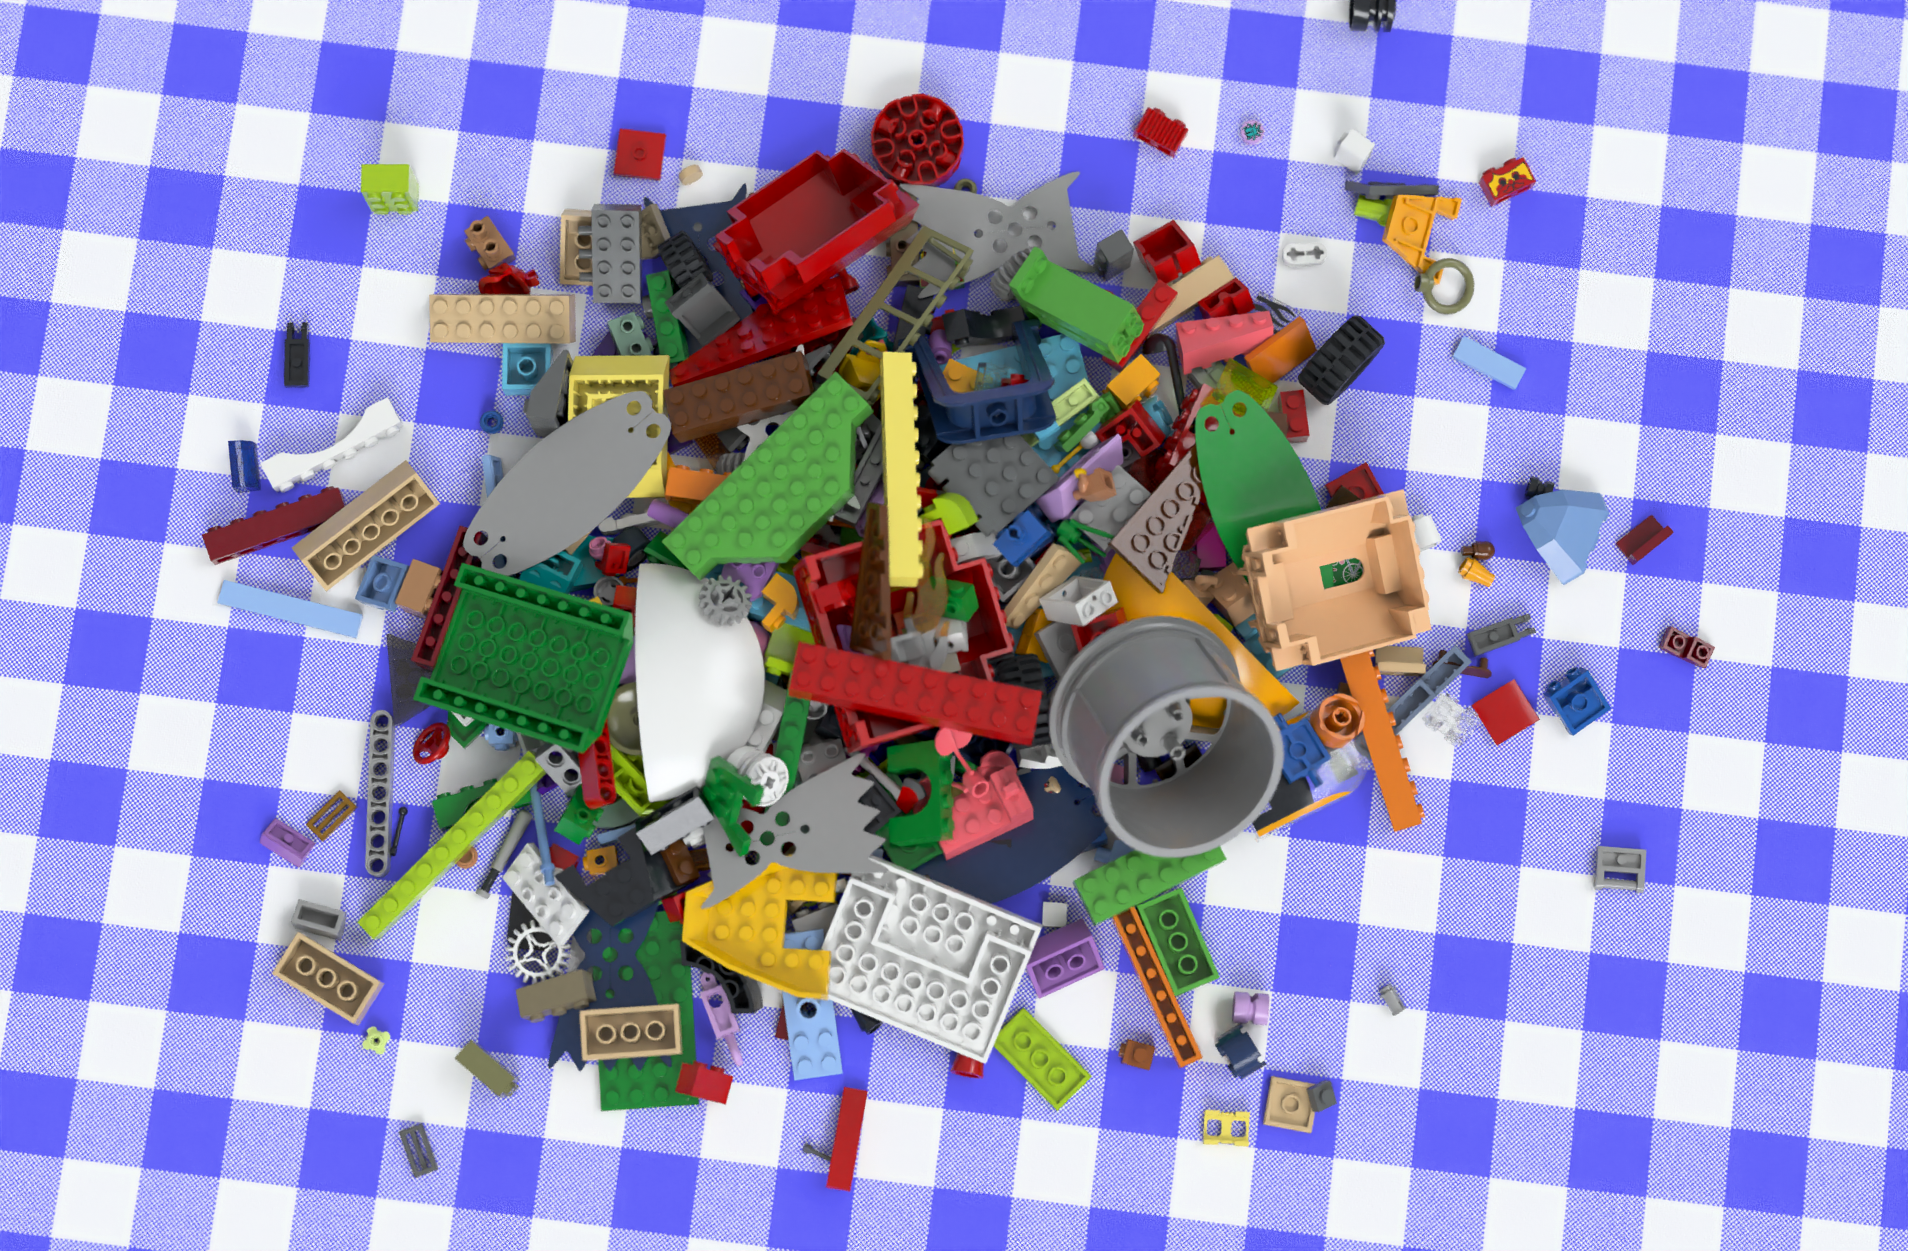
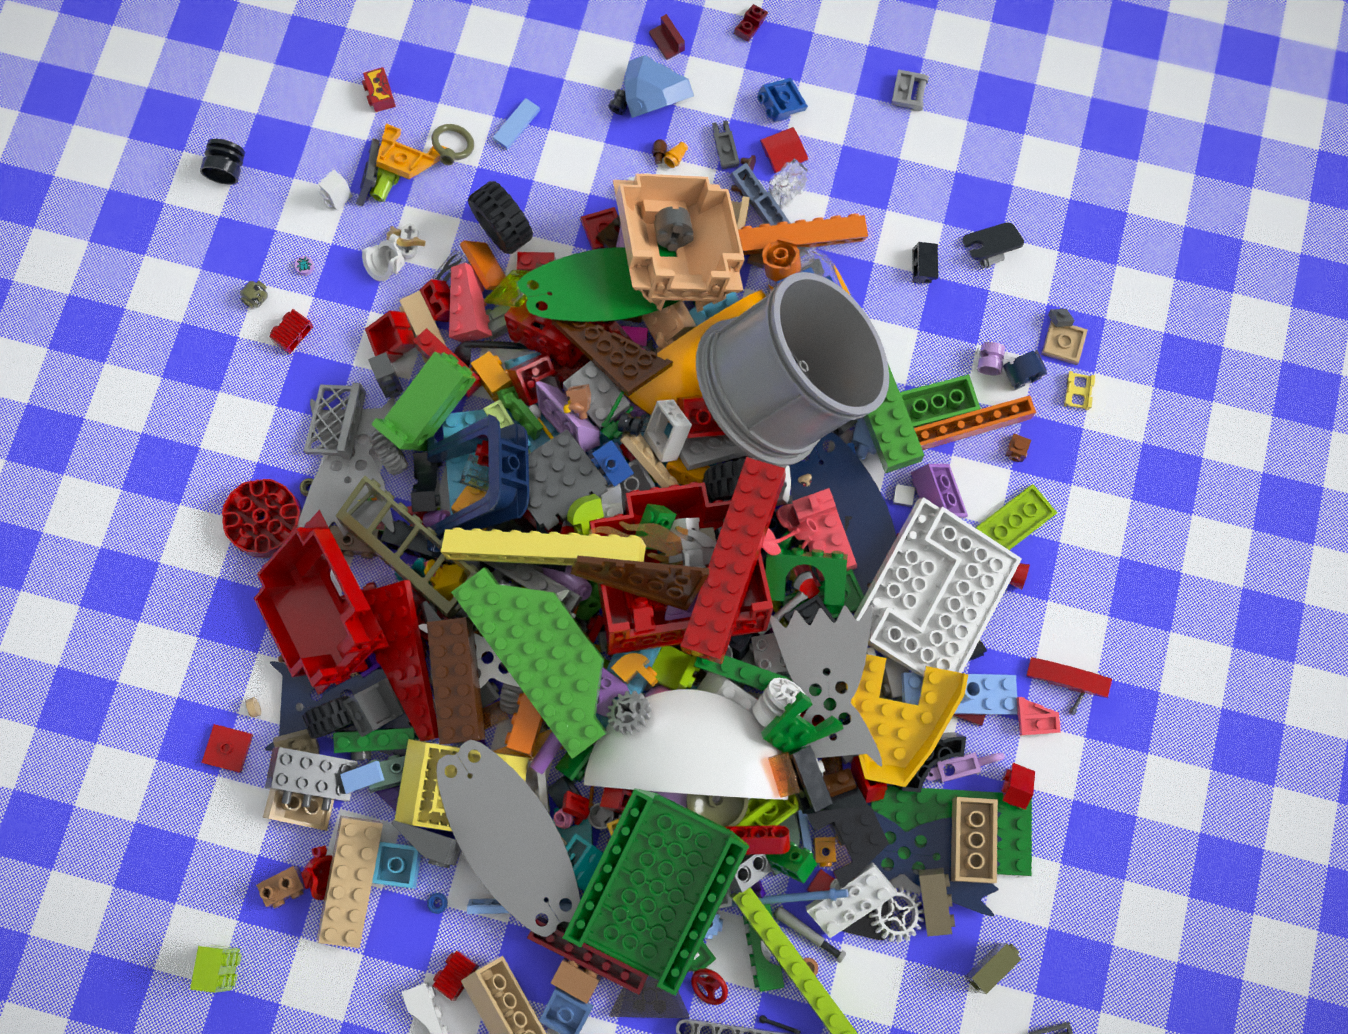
camera: 80 degrees left, 5 degrees down
(420, 455) = (449, 980): none -> red brick
(619, 311) = (362, 777): none -> light blue tile
(674, 790) = (784, 774): none -> clear orange plate
(790, 1102) = (1036, 719): none -> coral wing
(1057, 223) = (350, 420): none -> light grey fence
(1072, 552) = (630, 424): none -> black wheel
(1202, 78) = (253, 294): none -> olive head
(1273, 229) = (386, 257): none -> white helmet
(1357, 577) = (673, 228): none -> dark grey brick
(1372, 912) = (925, 262): none -> black hinge
(1418, 1002) = (995, 241): none -> black piece

